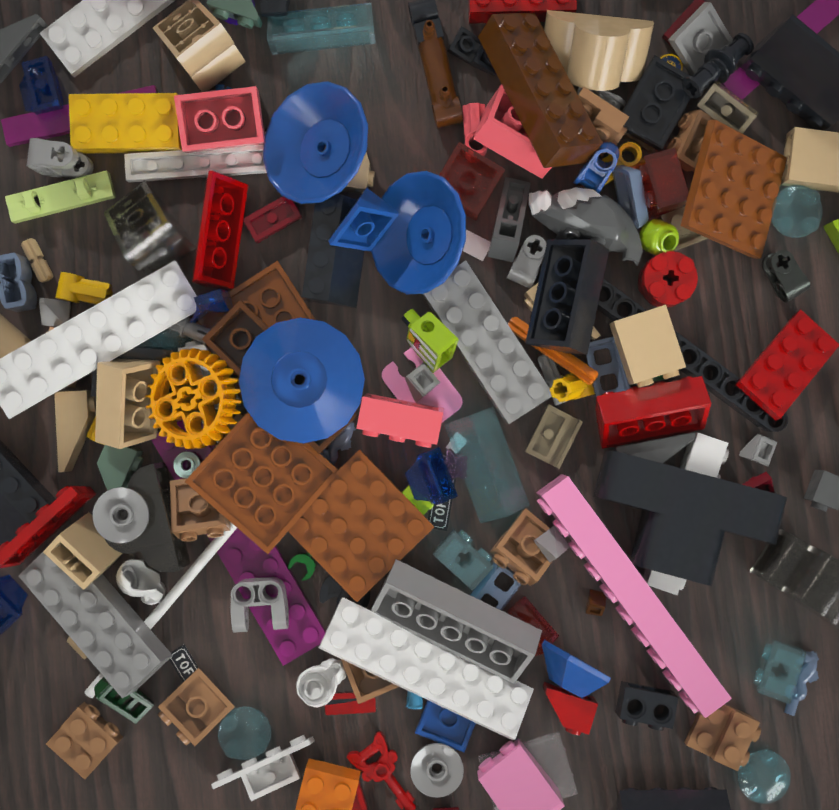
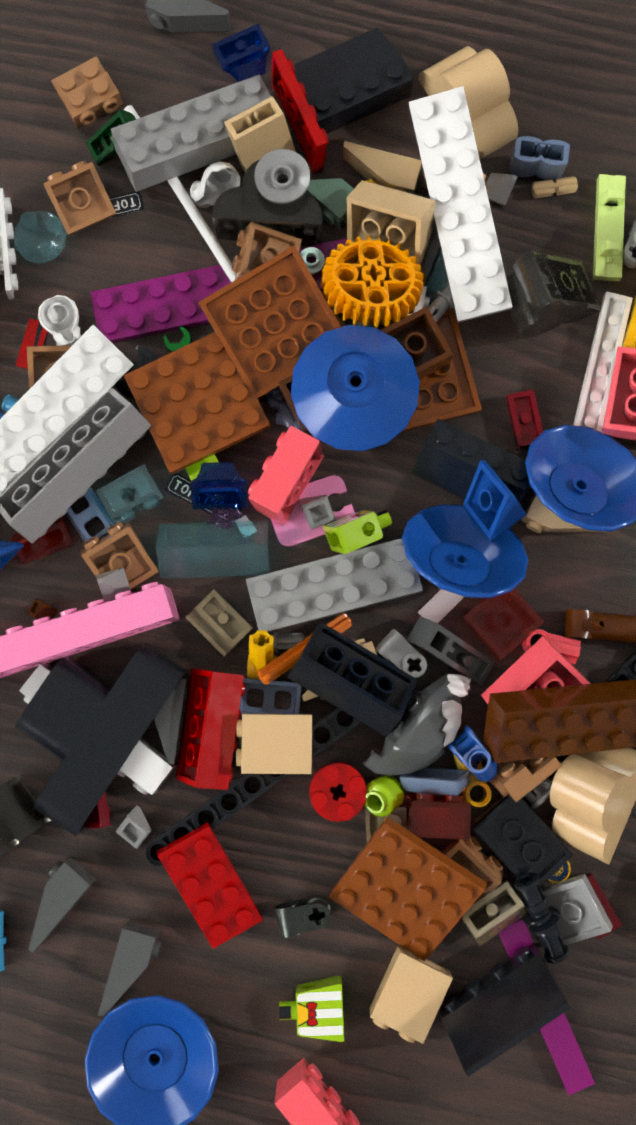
camera: 115 degrees right, 5 degrees down
(77, 289) = (514, 215): yellow piece -> none
(213, 301) = (459, 330): clear blue slope -> none
(220, 231) = (528, 360): red slope -> none
(259, 597) = (161, 287): light grey piece -> none
(797, 211) = (364, 952): clear light blue dish -> none

